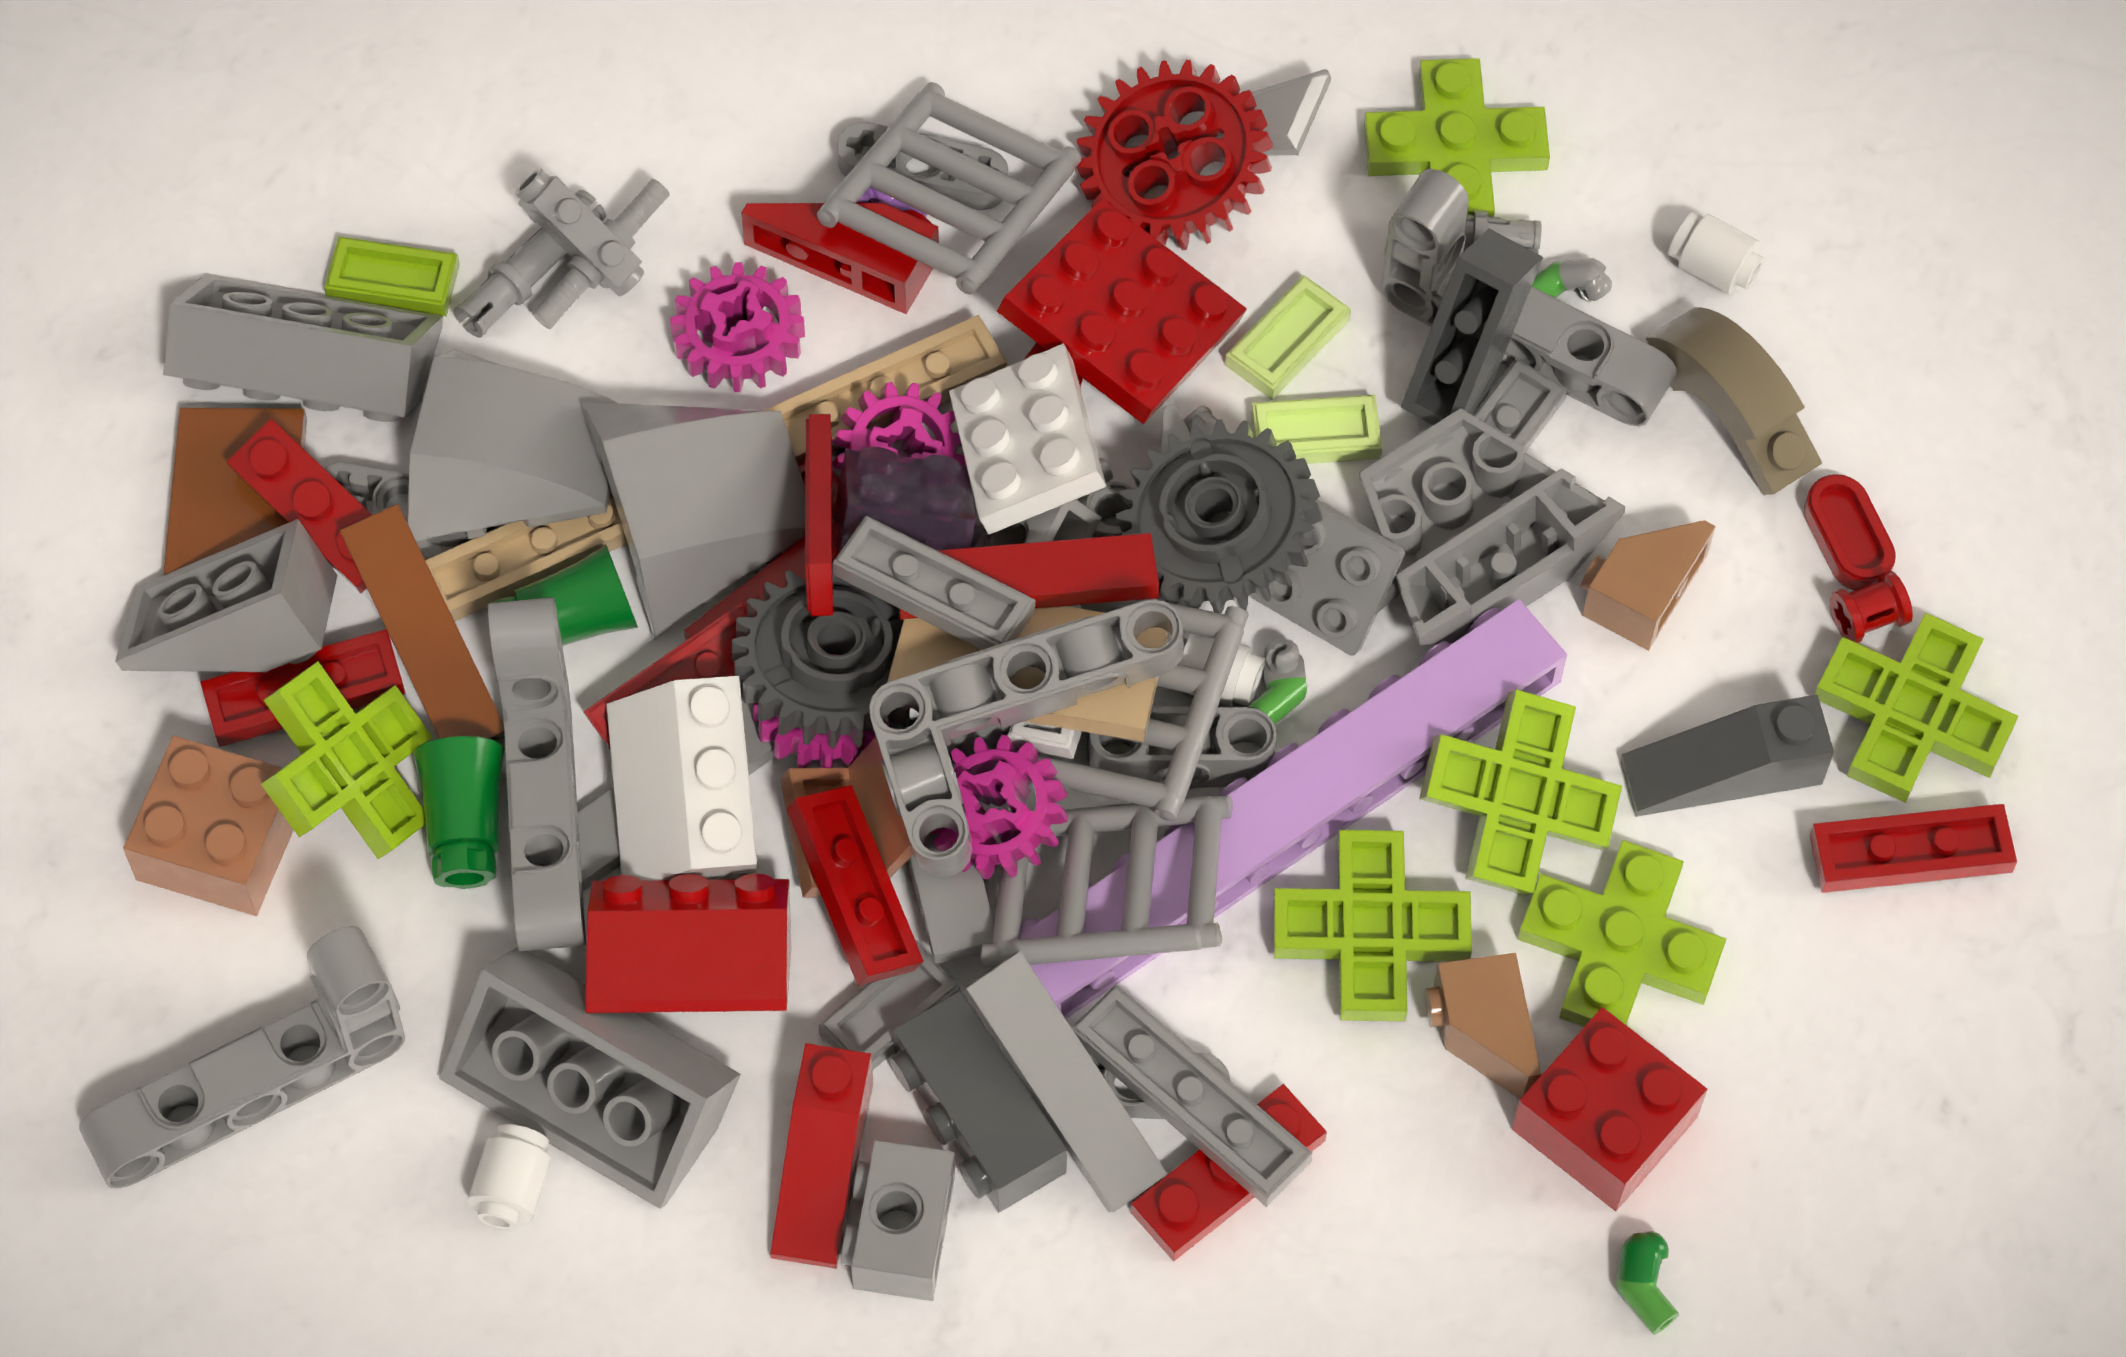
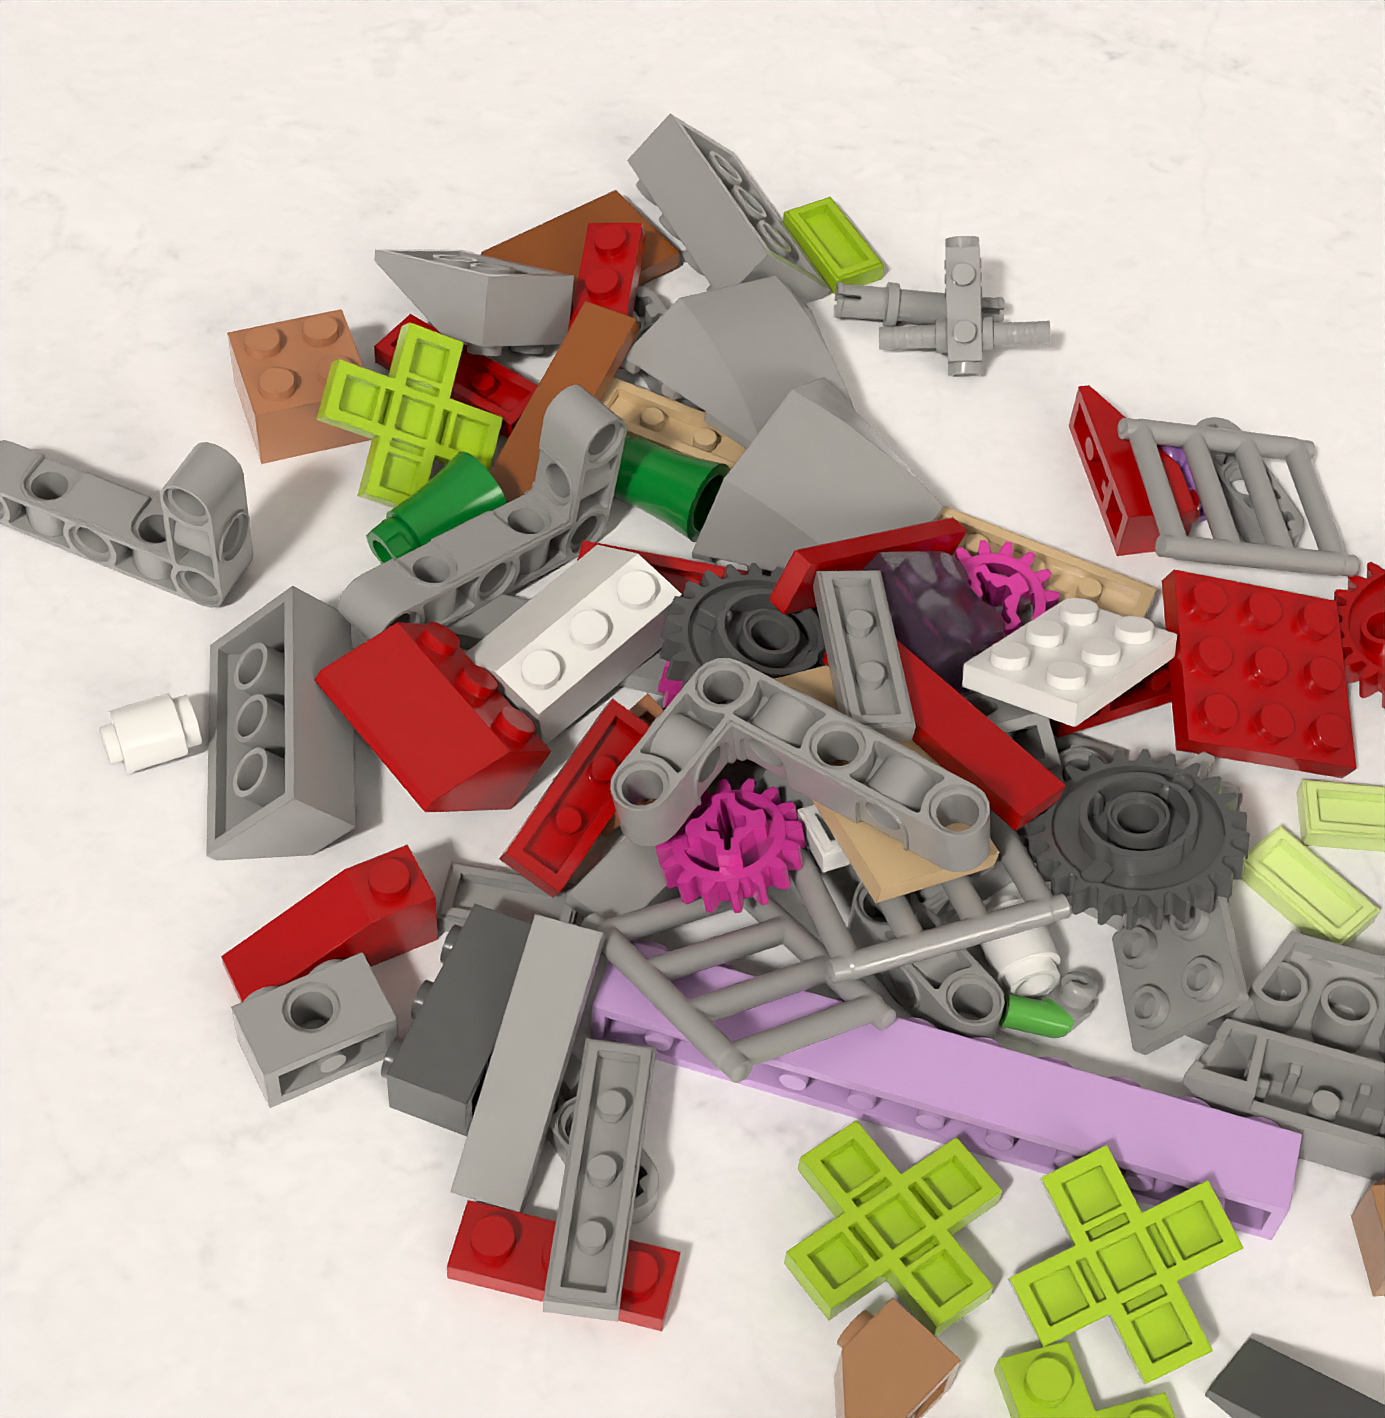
camera: 50 degrees right, 10 degrees down
(739, 346) = (987, 449): dark pink gear -> none

